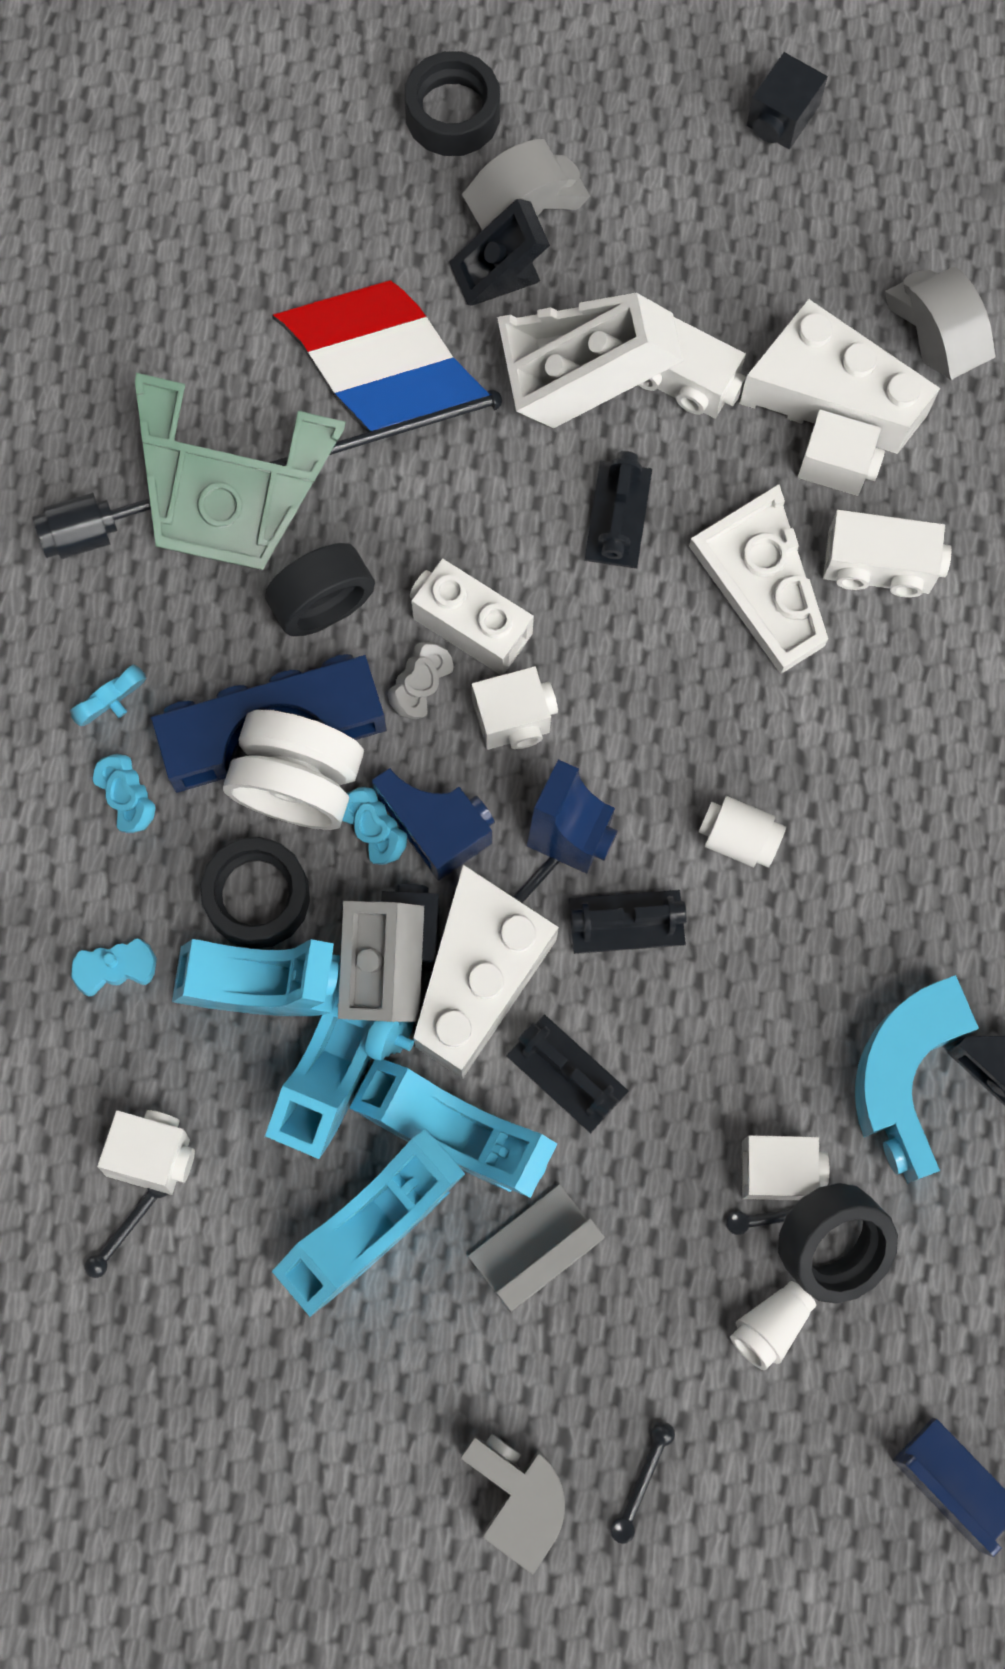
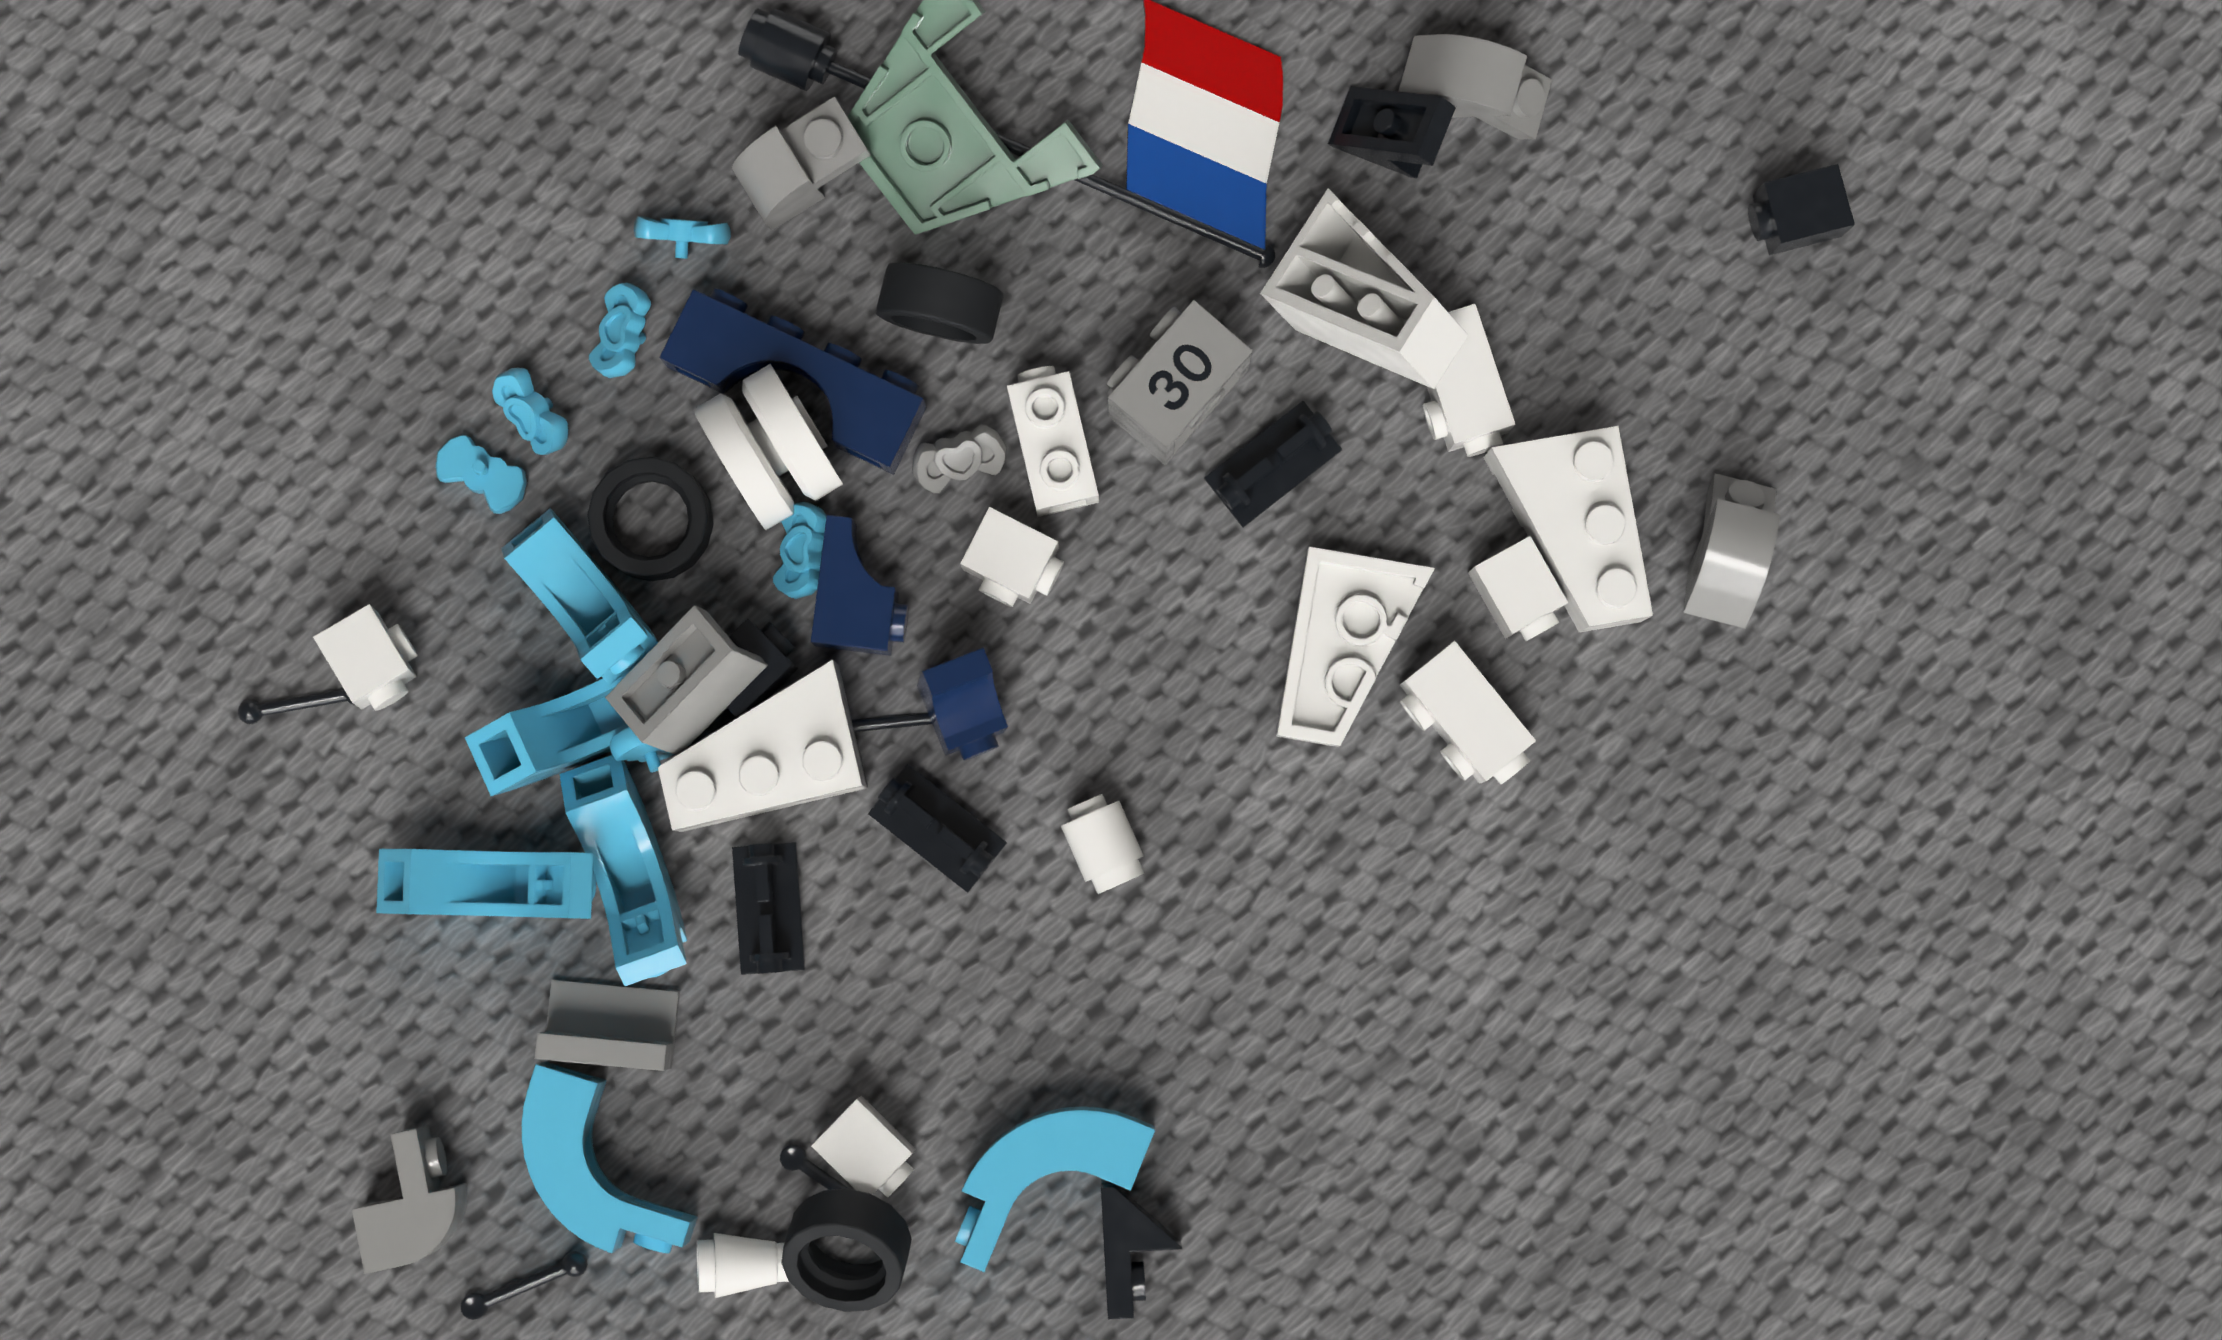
camera: 45 degrees right, 10 degrees up
(110, 896) = (530, 411): none -> medium azure piece
(142, 586) = (791, 164): none -> light grey brick
(515, 504) = (1177, 381): none -> light grey brick
(595, 1371) = (567, 1176): none -> medium azure arch

